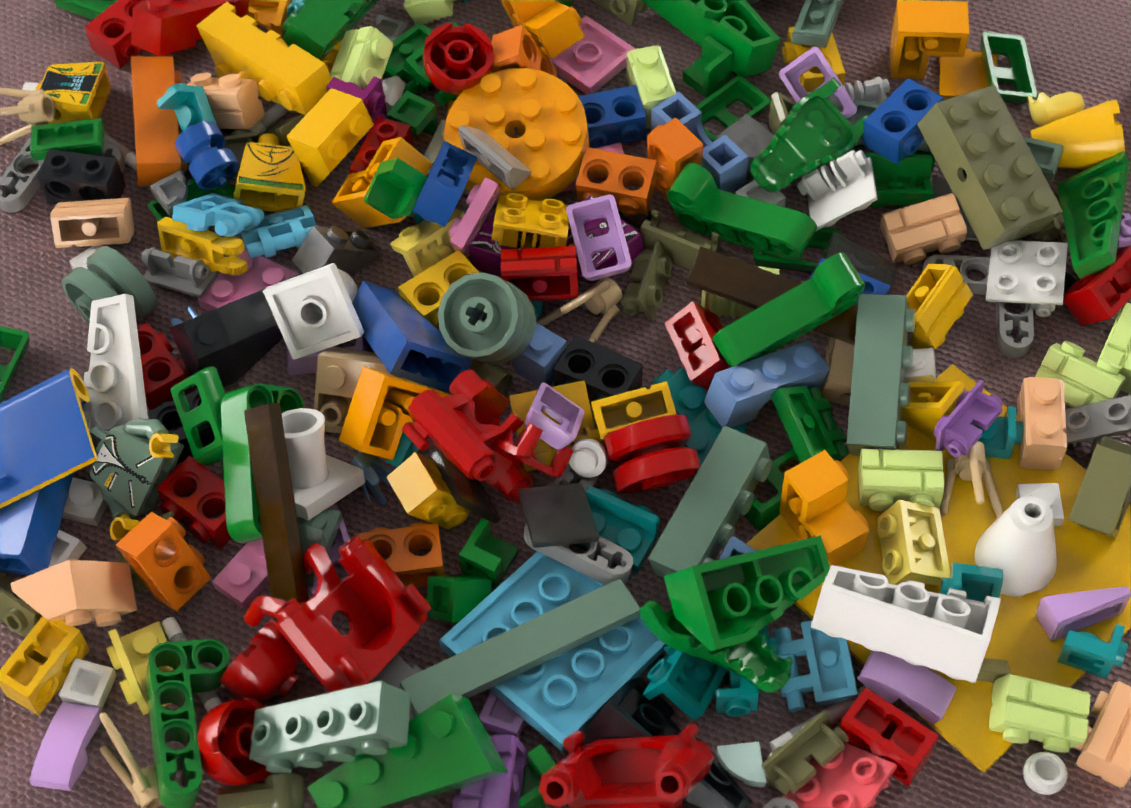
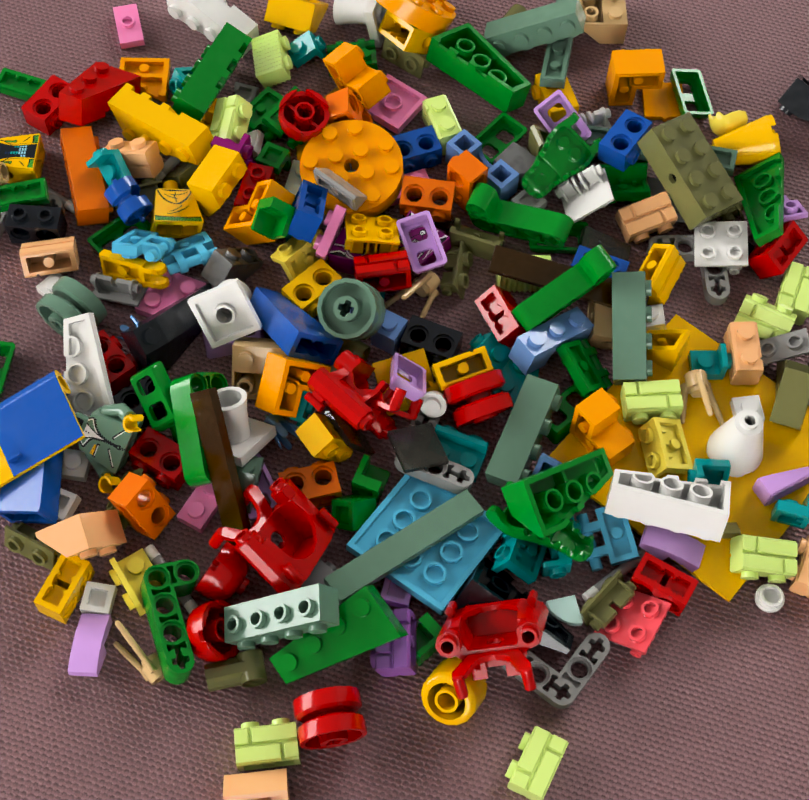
camera: 10 degrees left, 5 degrees up
(170, 191) = (104, 229): light grey tile -> none
(710, 70) = (482, 108): green panel -> none
(957, 430) = (688, 364): medium lavender hinge -> none

